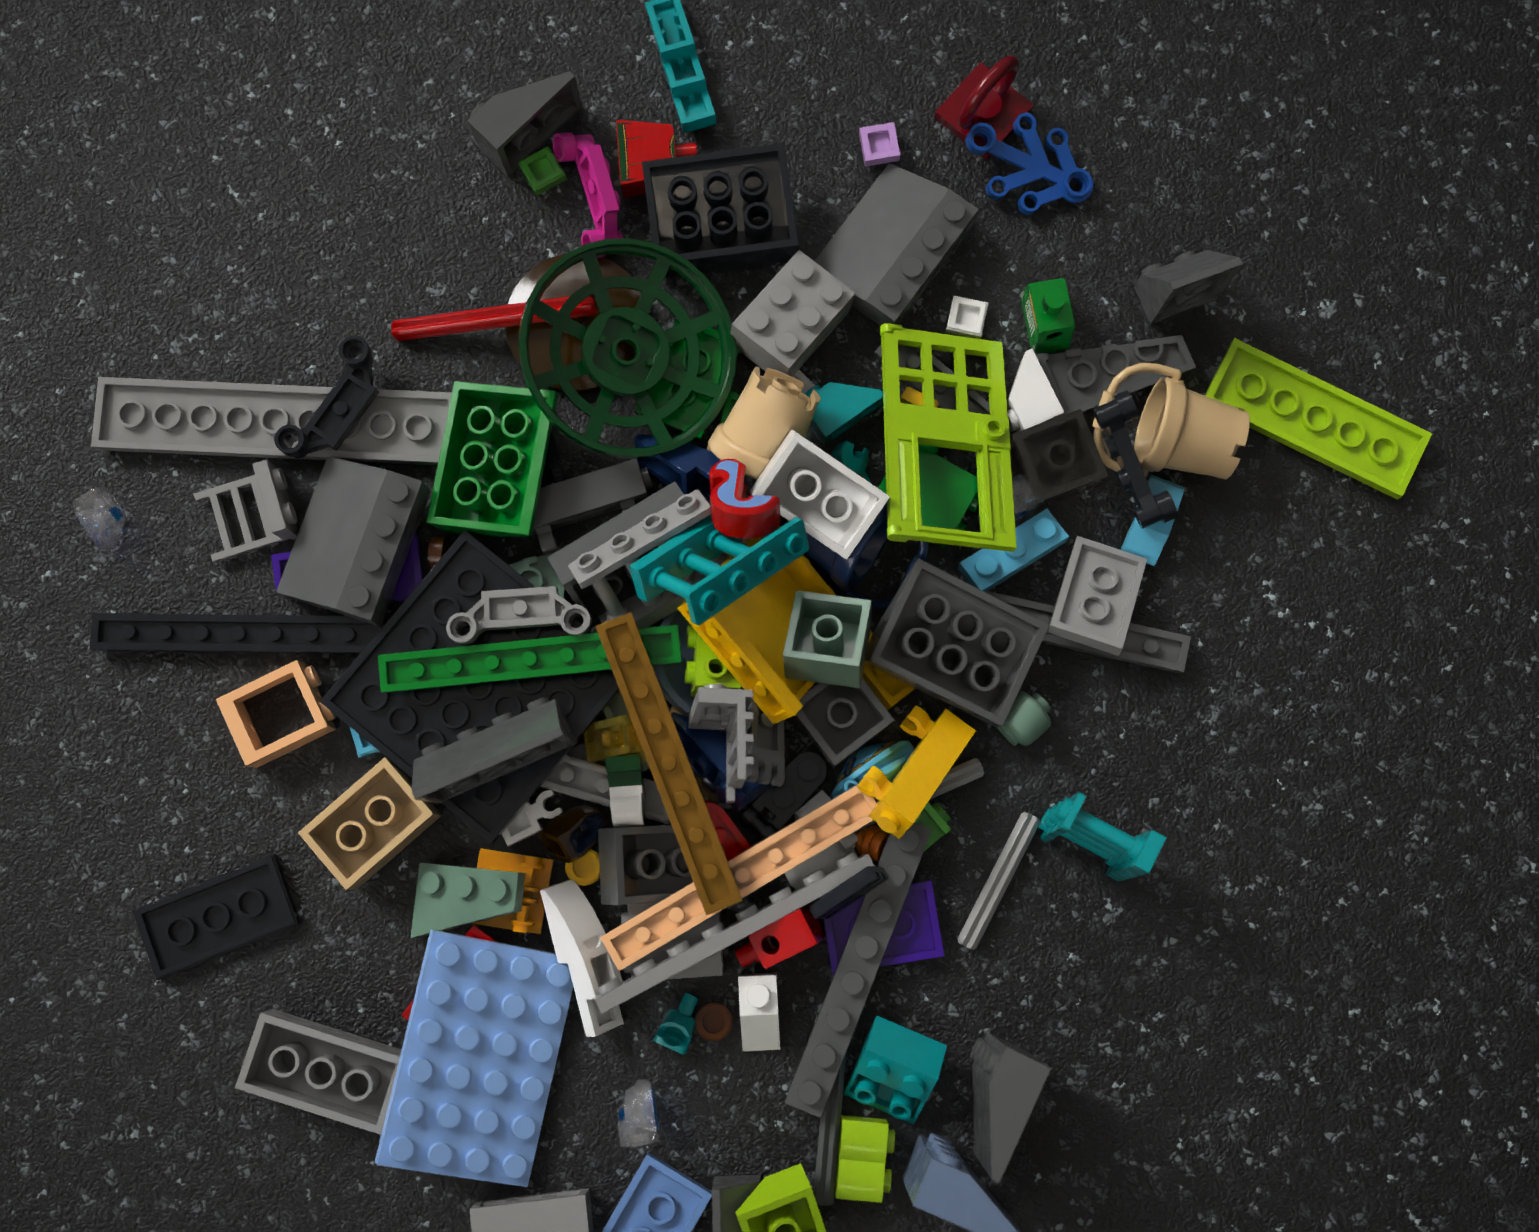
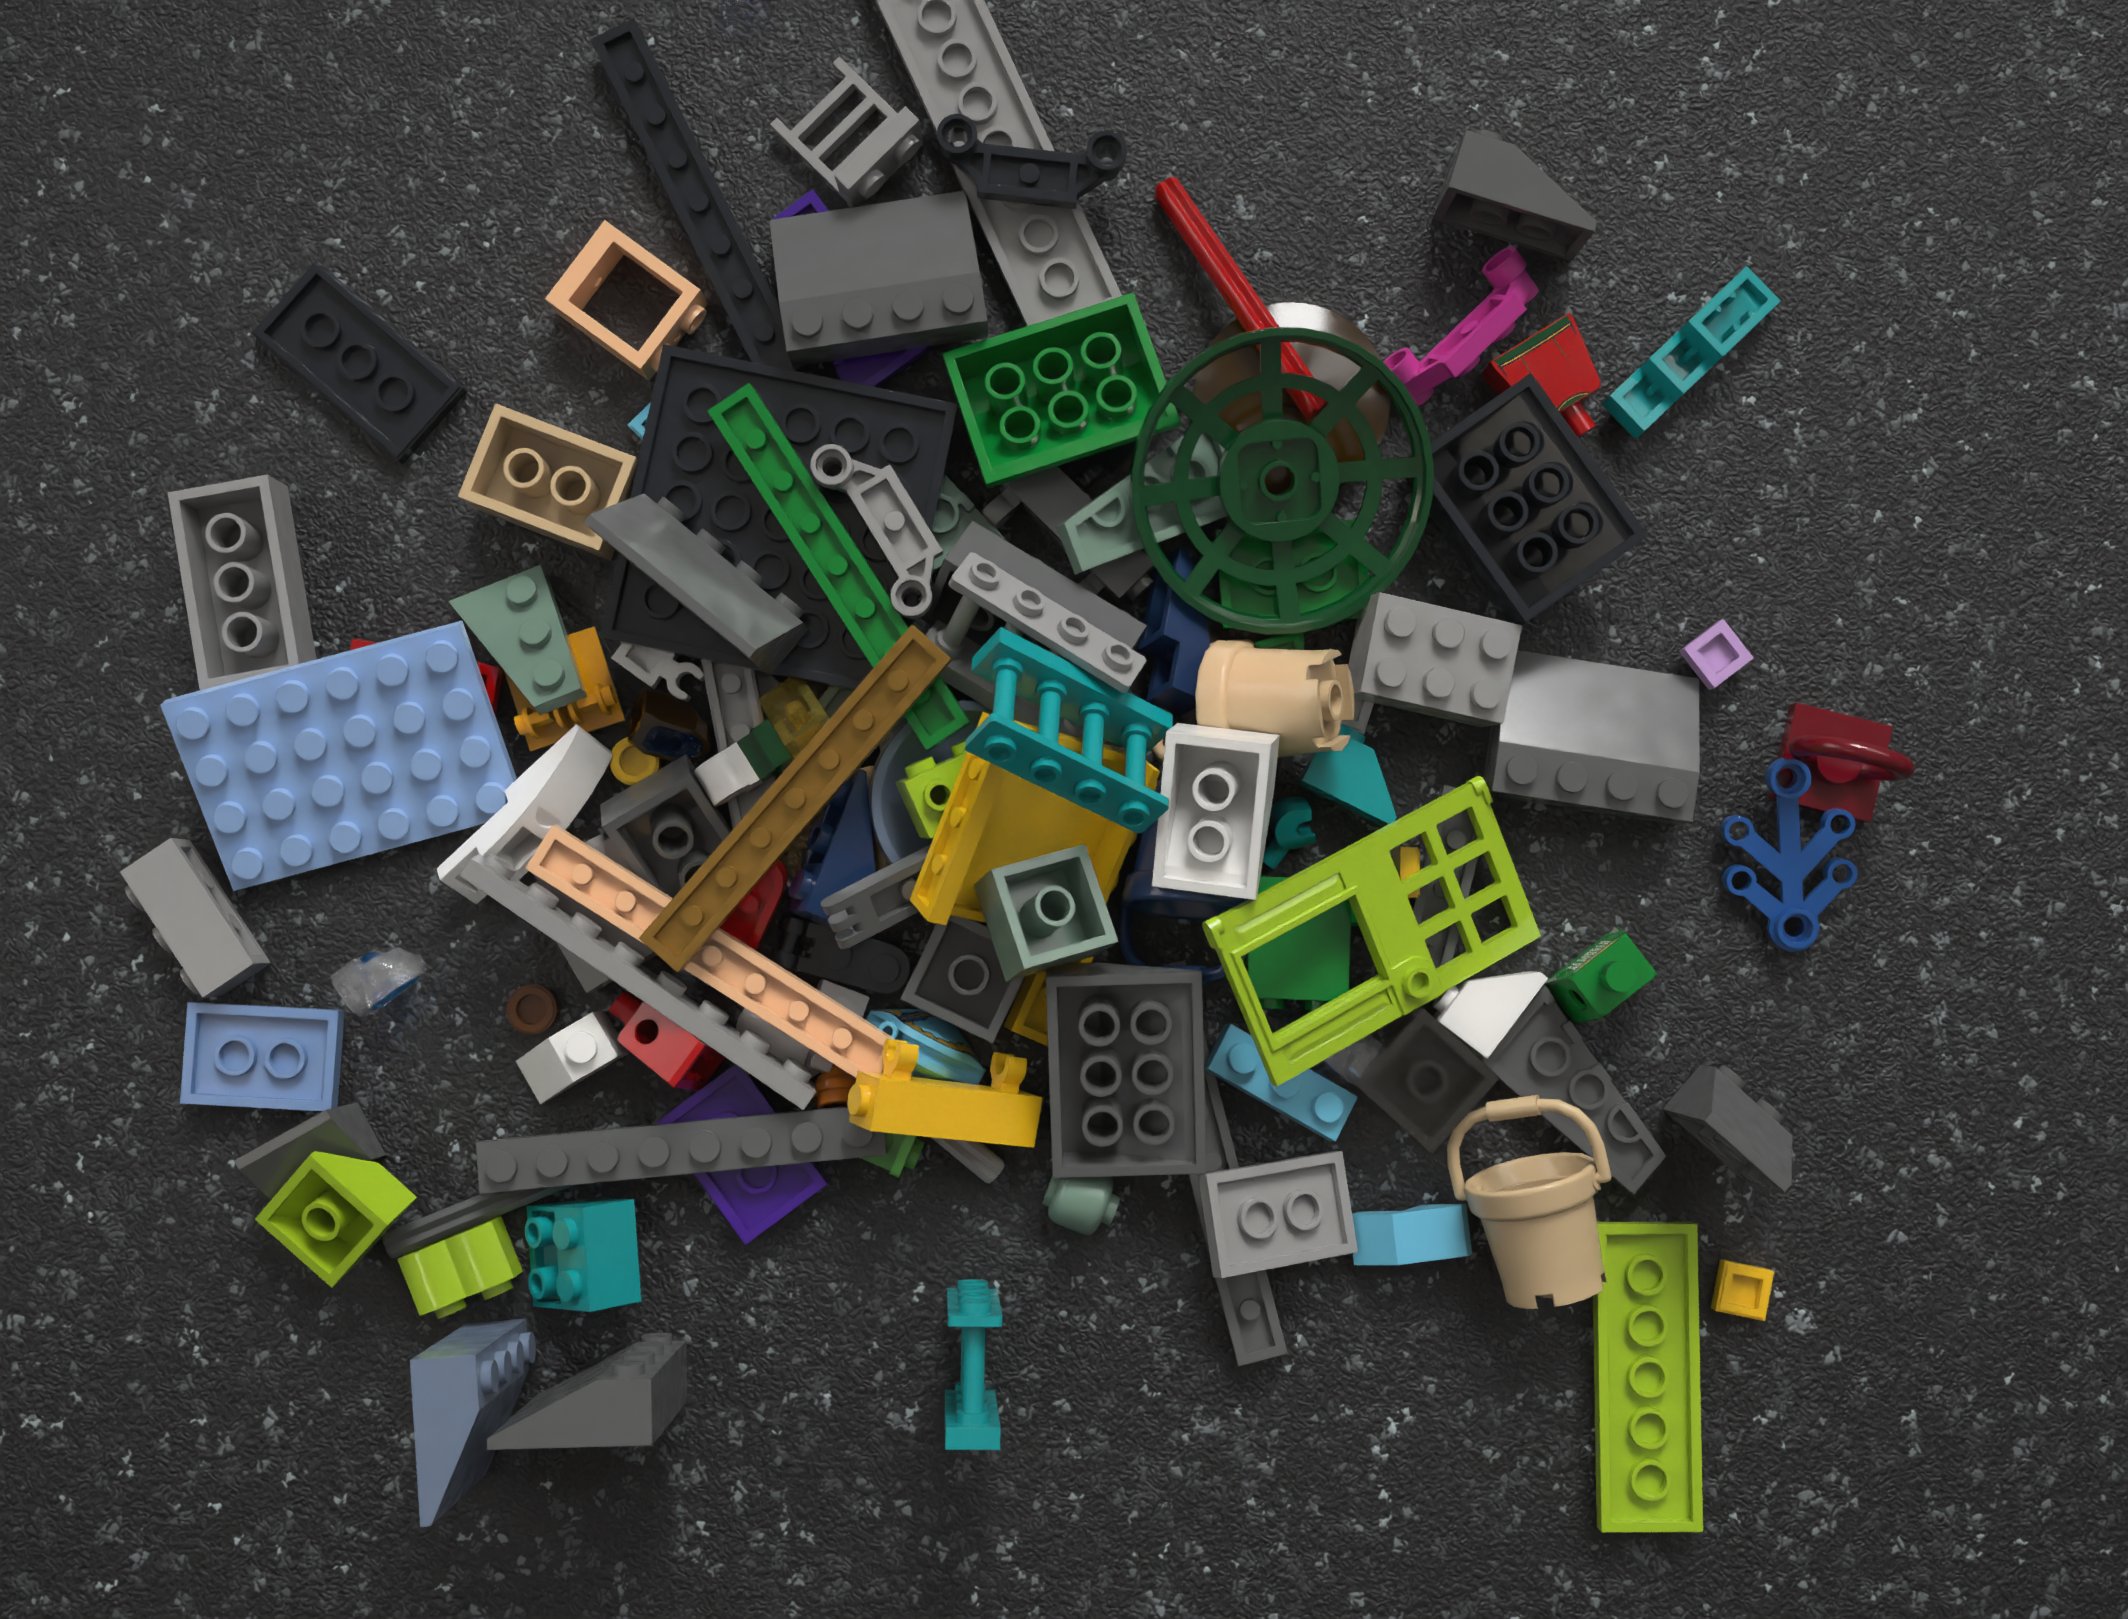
camera: 55 degrees right, 5 degrees up
(437, 548) = (922, 383): reddish brown tile -> none
(542, 170) = (1461, 256): bright green tile -> none
(596, 474) = (1107, 524): none -> sand green wing
(678, 1026) = (504, 970): teal piece -> none
(726, 710) = (892, 829): light grey plate -> none
(732, 511) = (1136, 713): red animal -> none
(848, 892) = (756, 1092): black tile -> none
(966, 317) = (1550, 876): white tile -> none
(998, 880) = (870, 1264): light grey axle -> none
(1131, 478) = (1503, 1125): black plate -> none
(1289, 333) = (1742, 1290): none -> yellow tile

